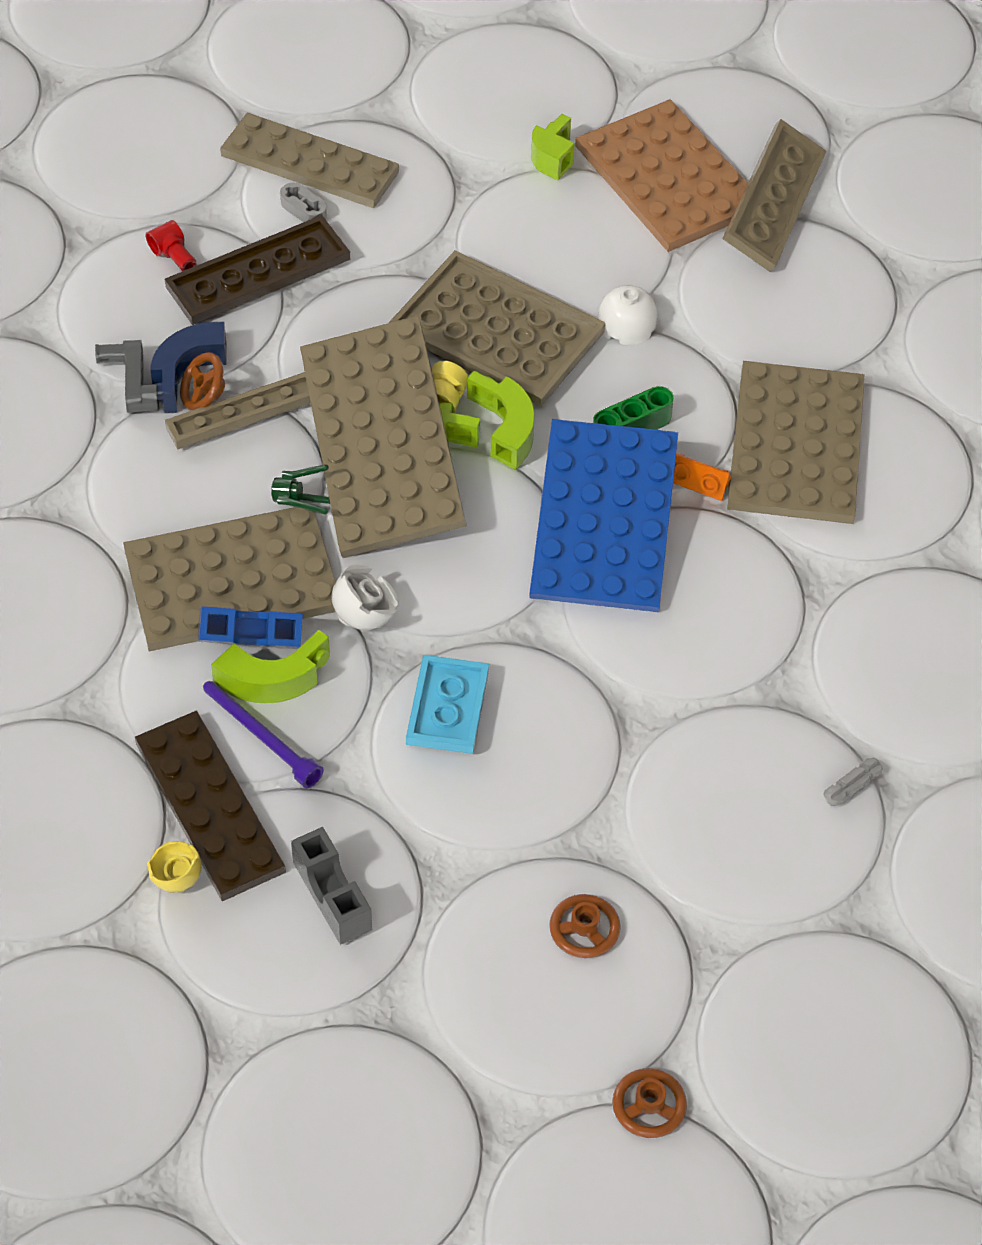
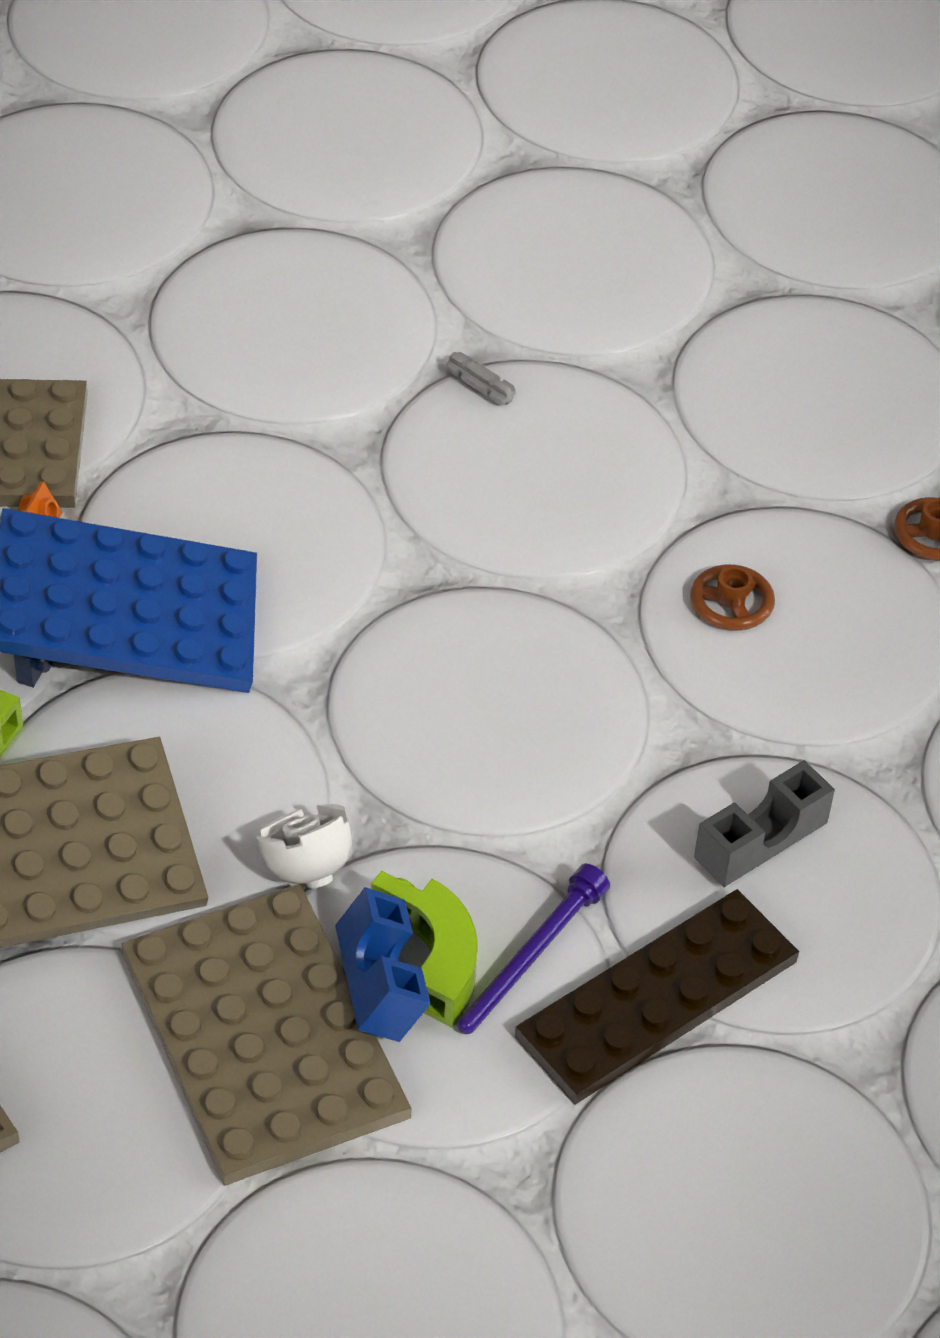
camera: 100 degrees left, 5 degrees down
(174, 866) = (779, 1000): light yellow hair -> none
(289, 491) = (105, 963): dark green plant -> none
(447, 704) = (448, 749): medium azure plate -> none

